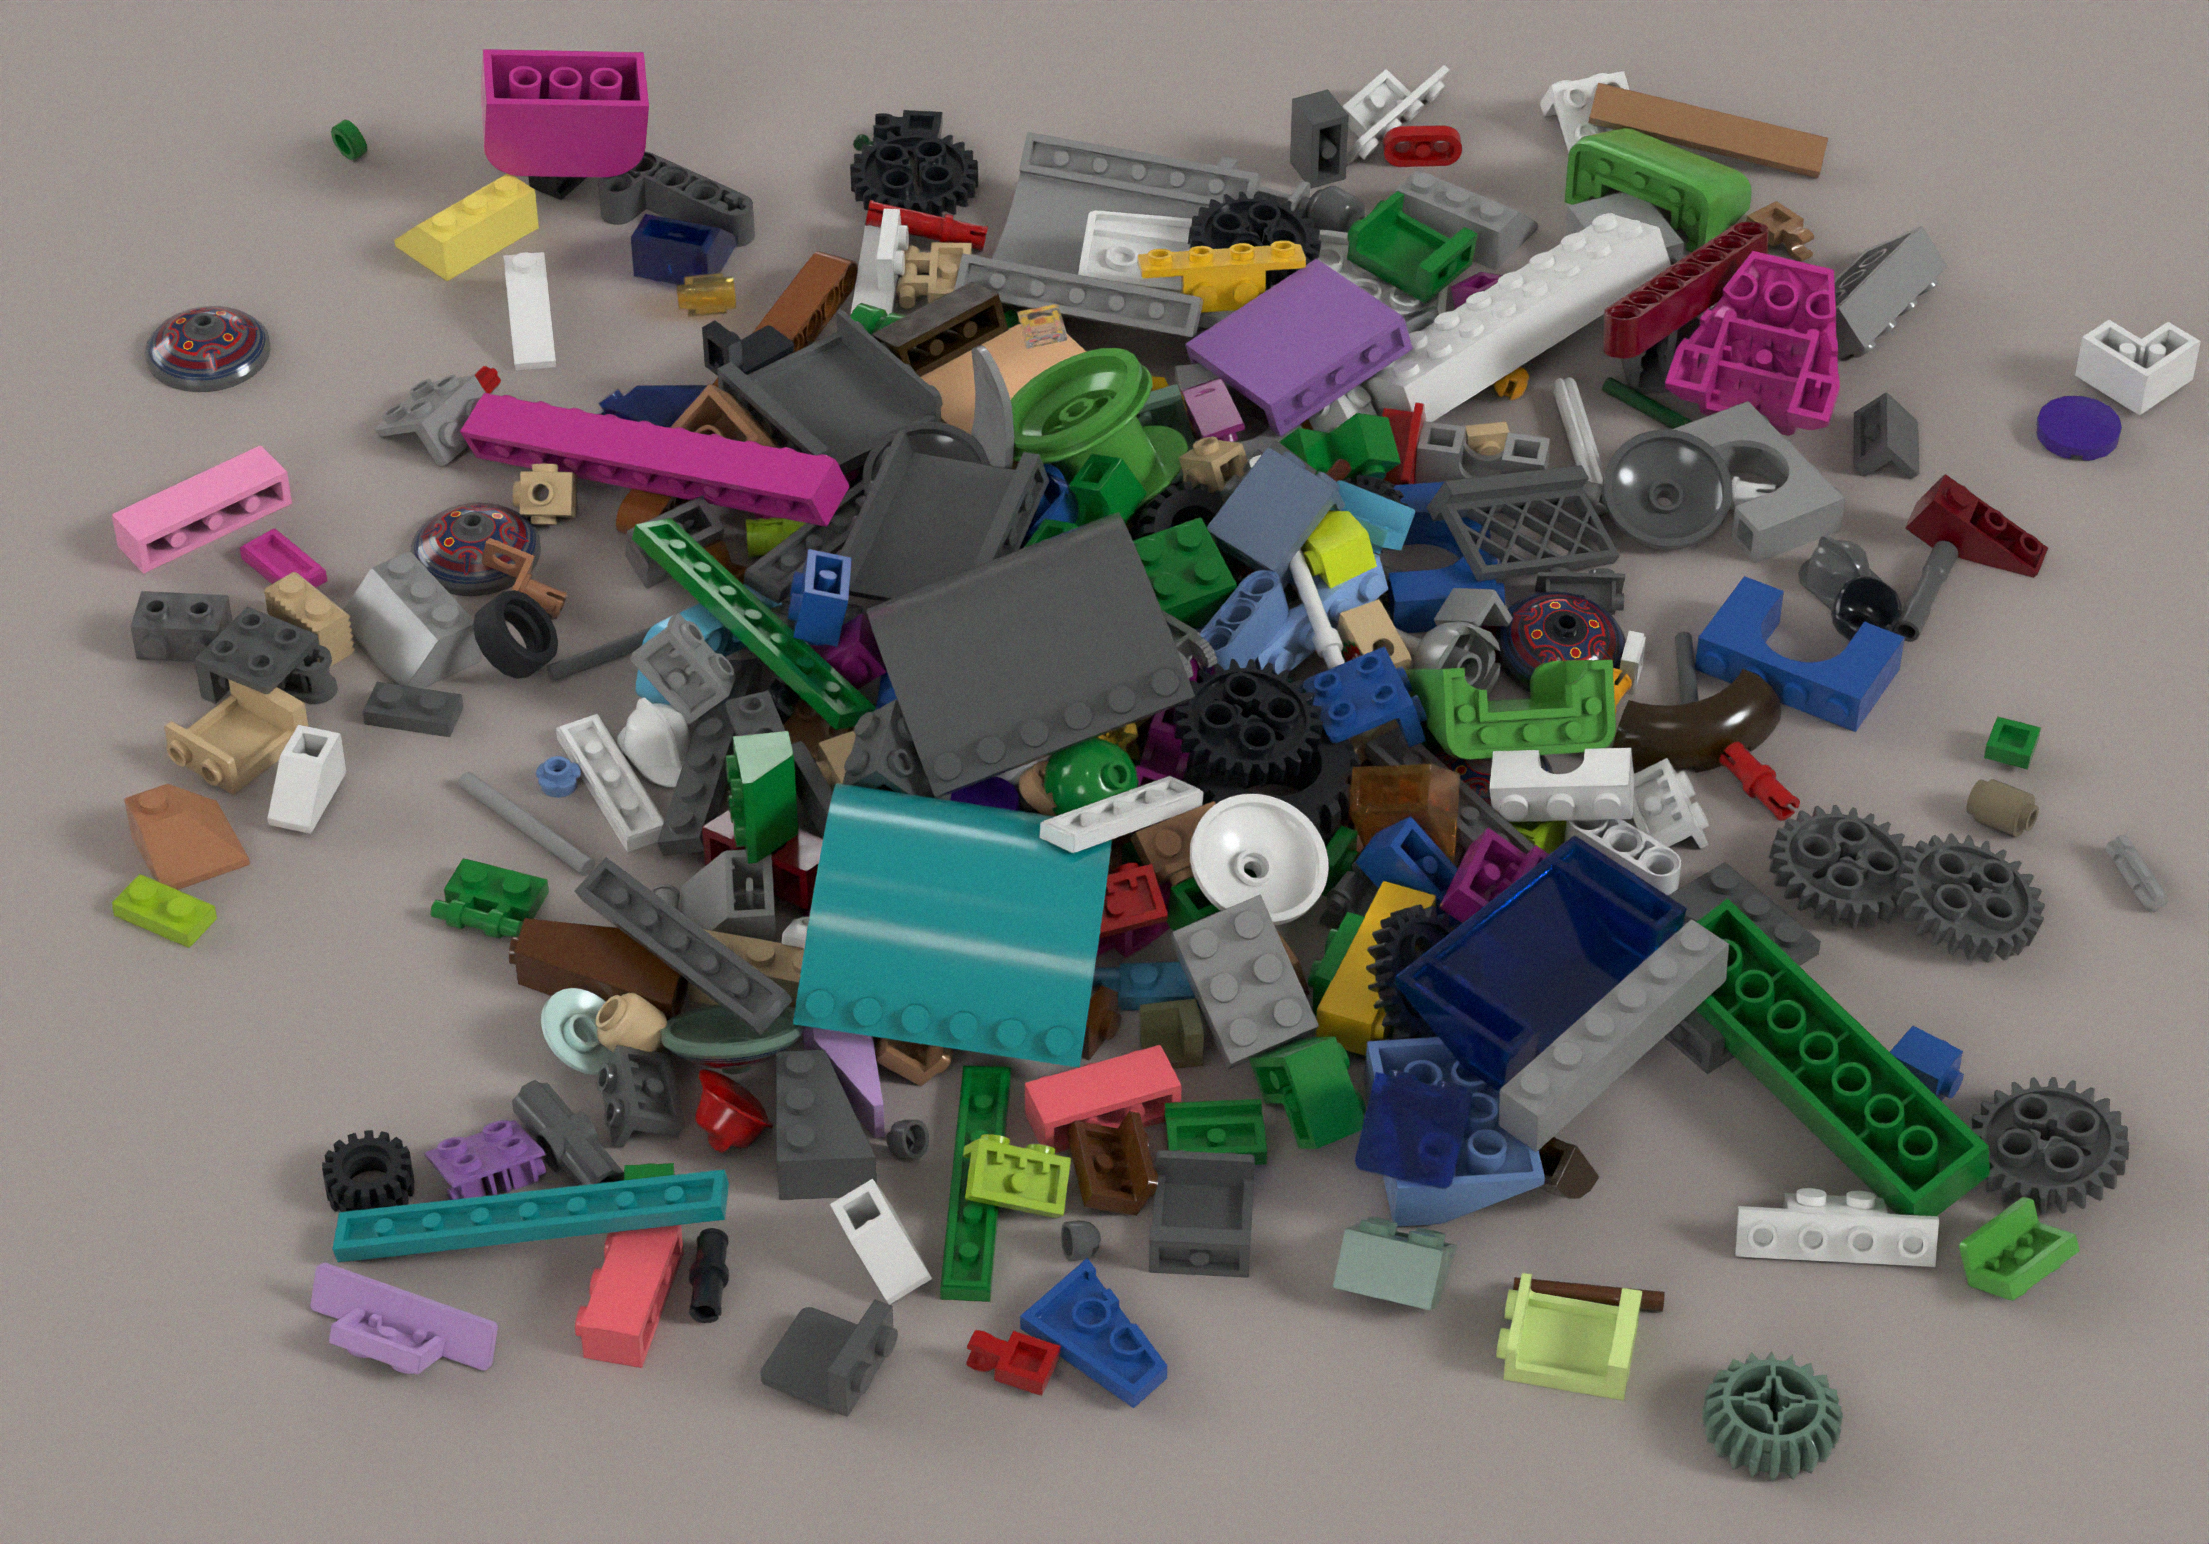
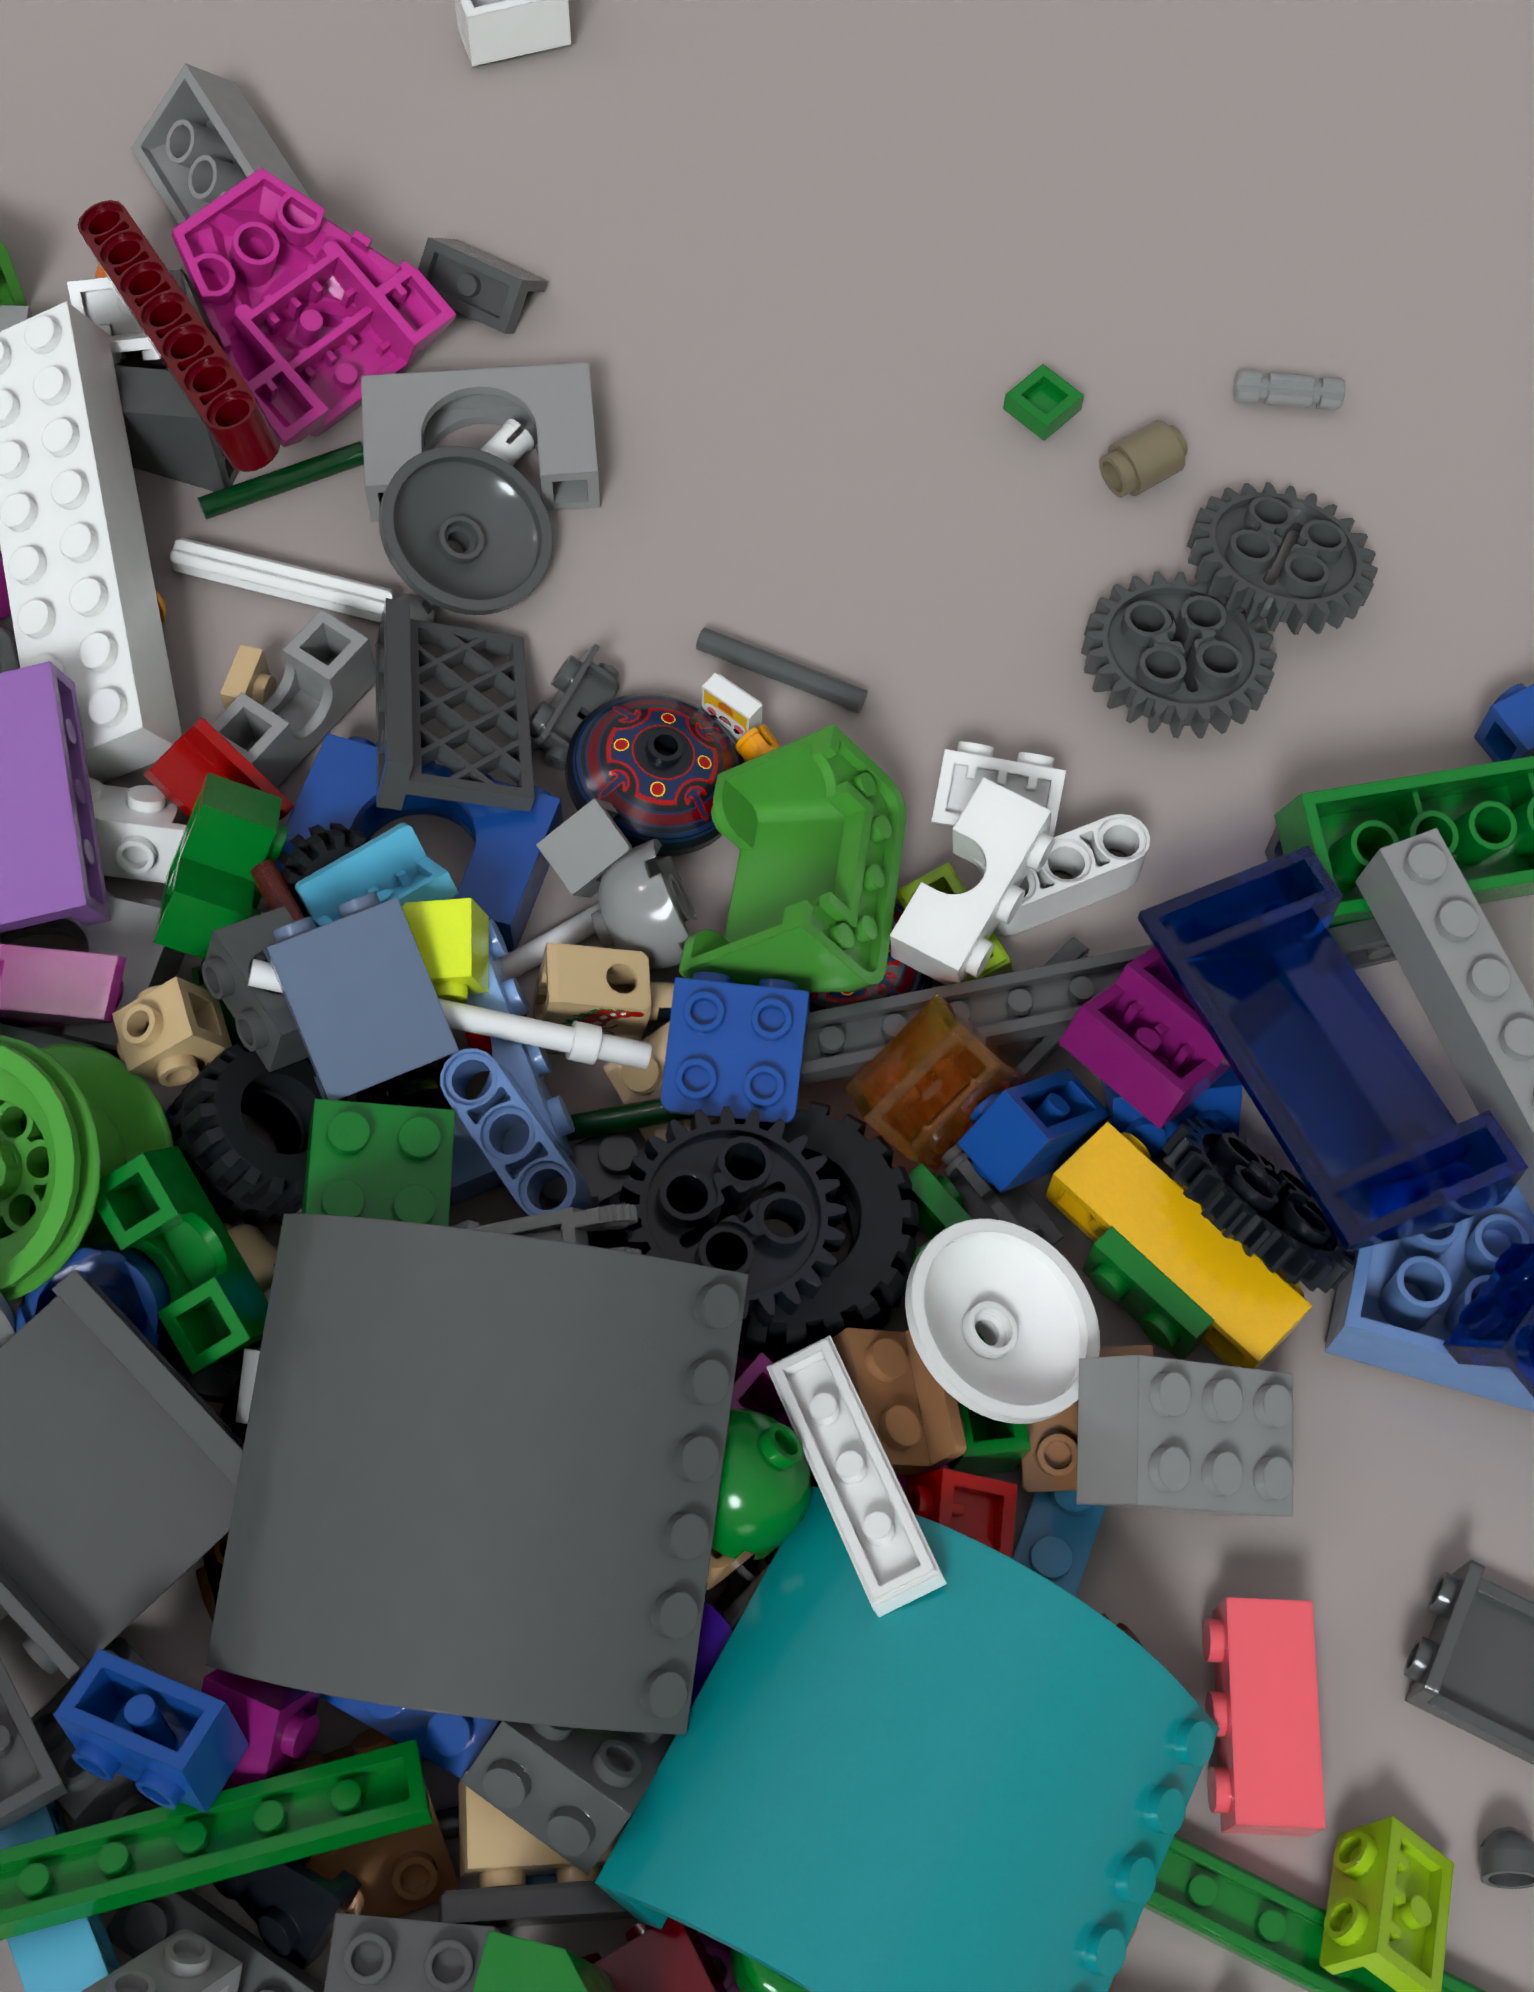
camera: 70 degrees left, 20 degrees up
(1113, 1165) = (1397, 1754): reddish brown bracket -> none
(1175, 1028) = (1174, 1566): olive panel -> none
(1217, 1127) = (1373, 1586): green plate -> none
(1314, 1089) = (1371, 1428): green brick -> none
(1700, 730) = (898, 706): dark brown brick -> none
(1725, 882) = (1205, 797): dark grey wing -> none
(1759, 781) = (992, 673): red pin -> none
(1784, 228) = (42, 205): medium nougat plate -> none
(1831, 689) = (770, 592): blue arch -> none
(1832, 566) = (689, 435): dark grey piece -> none
(1865, 601) = (773, 434): black hair -> none
(1919, 605) = (776, 385): dark grey piece -> none
(1975, 529) = (681, 274): dark red slope -> none
(2078, 427) = (560, 104): dark purple tile -> none

